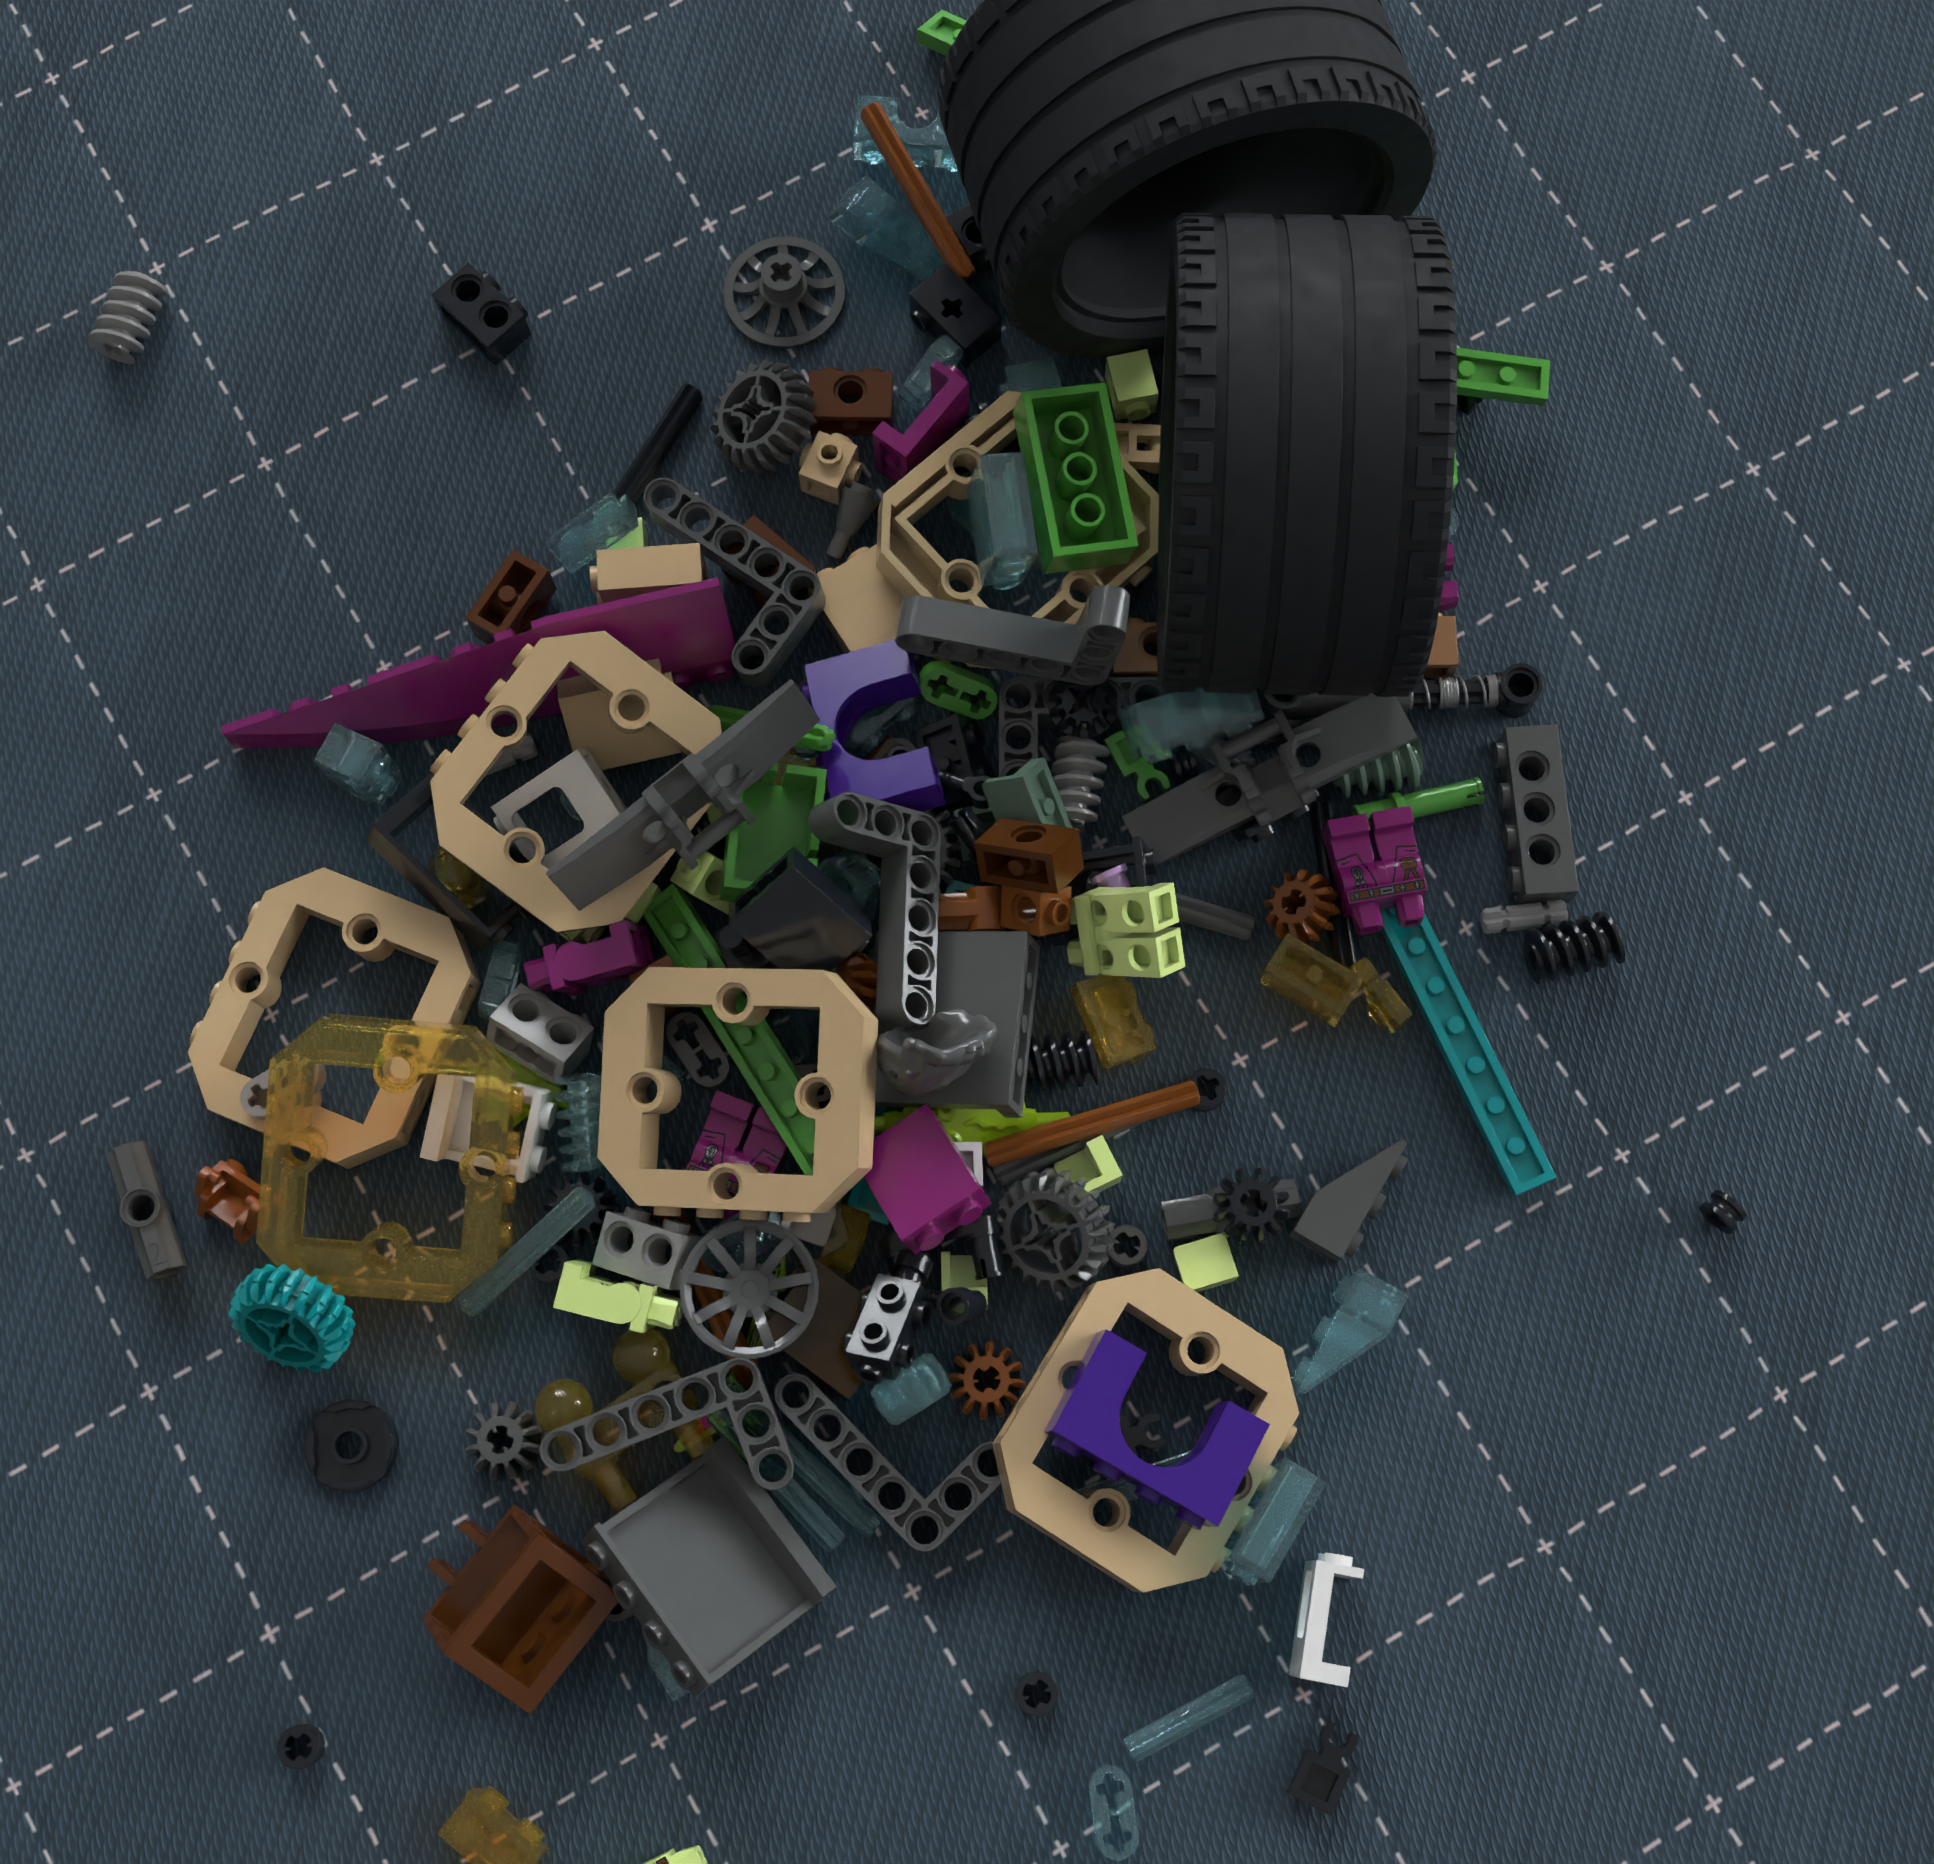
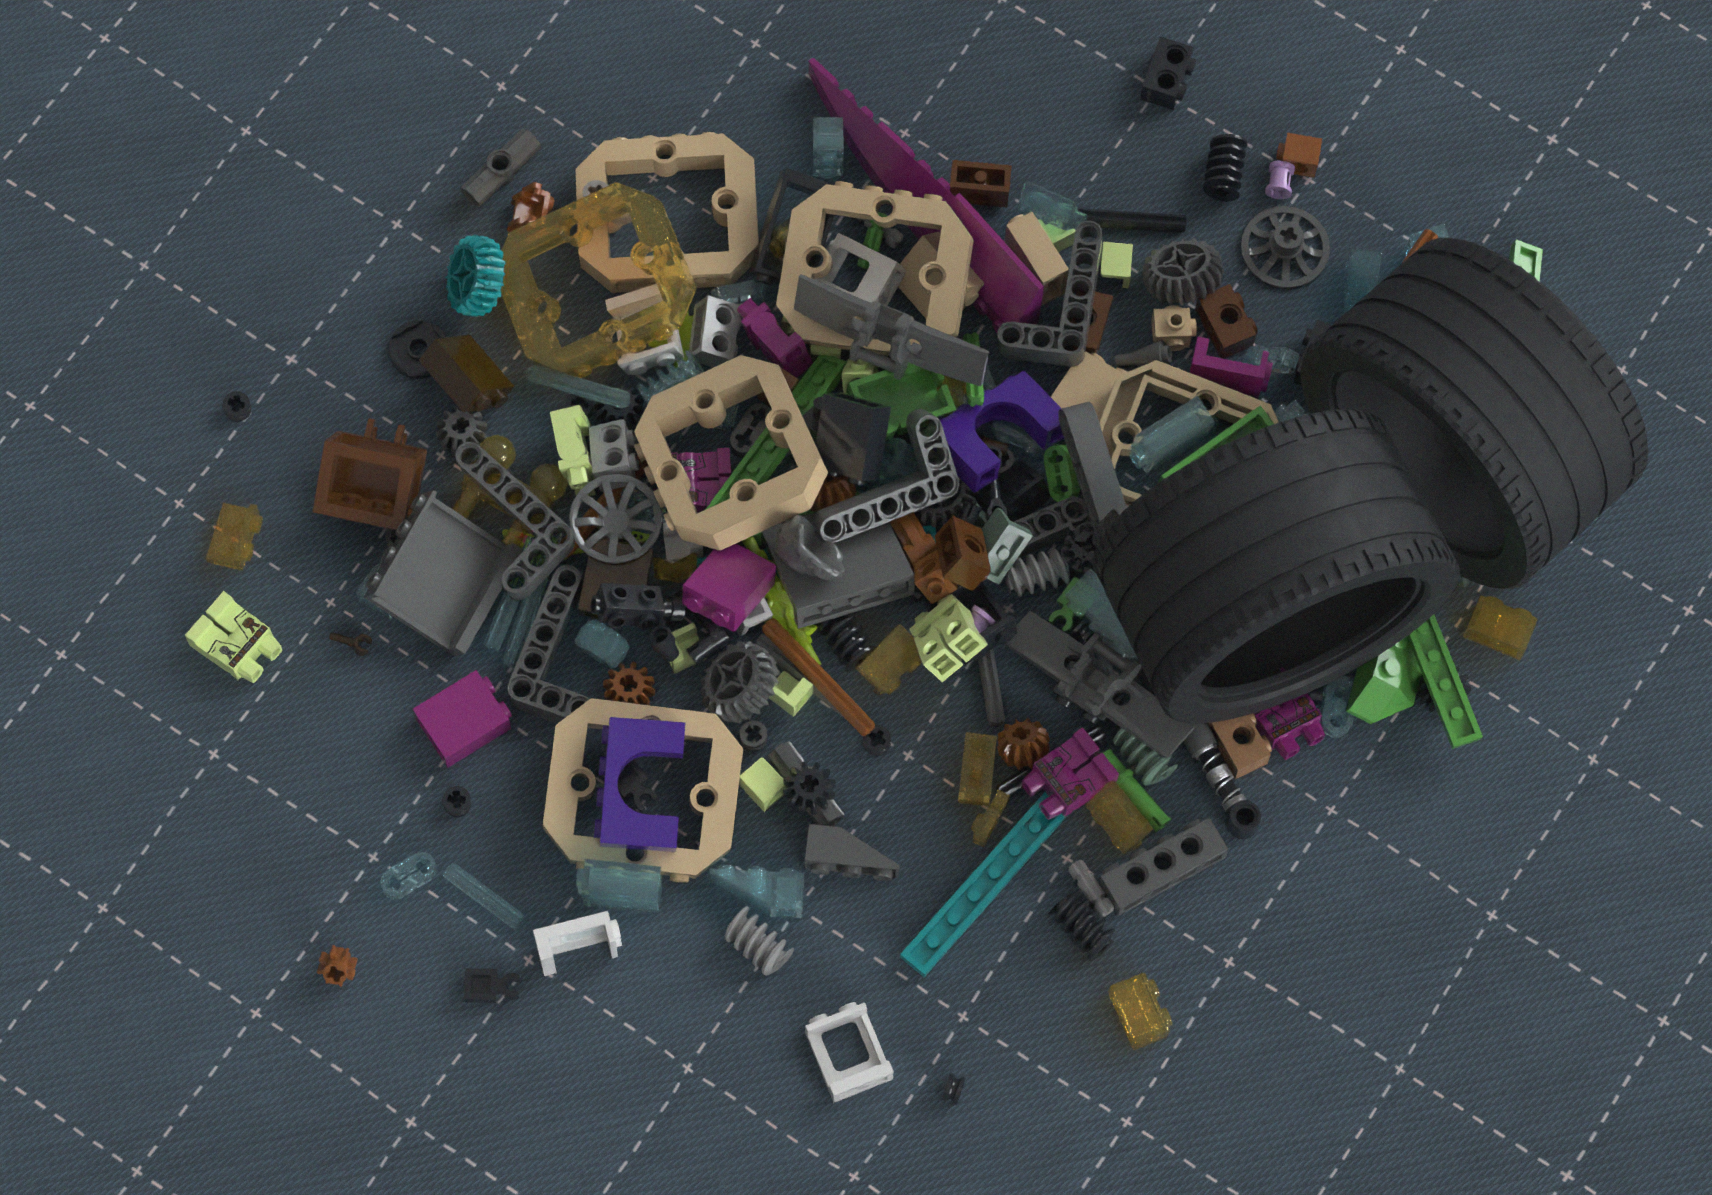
camera: 60 degrees right, 5 degrees down
(429, 1396) = (466, 373): none -> dark brown brick
(519, 774) = (872, 240): none -> bright green axle
(646, 307) = (1224, 167): none -> black piece
(676, 214) = (1301, 152): none -> dark orange brick
(696, 253) = (1280, 180): none -> lavender bush
(711, 485) = (1116, 261): none -> yellowish green panel
(732, 1739) = (353, 642): none -> dark brown hand
(923, 1630) = (463, 718): none -> magenta brick
(1420, 1372) = (757, 943): none -> light grey piece
(1459, 835) = (1119, 817): none -> clear yellow bracket
(1656, 1324) = (857, 1078): none -> white window
(1715, 932) = (1140, 1010): none -> clear yellow brick

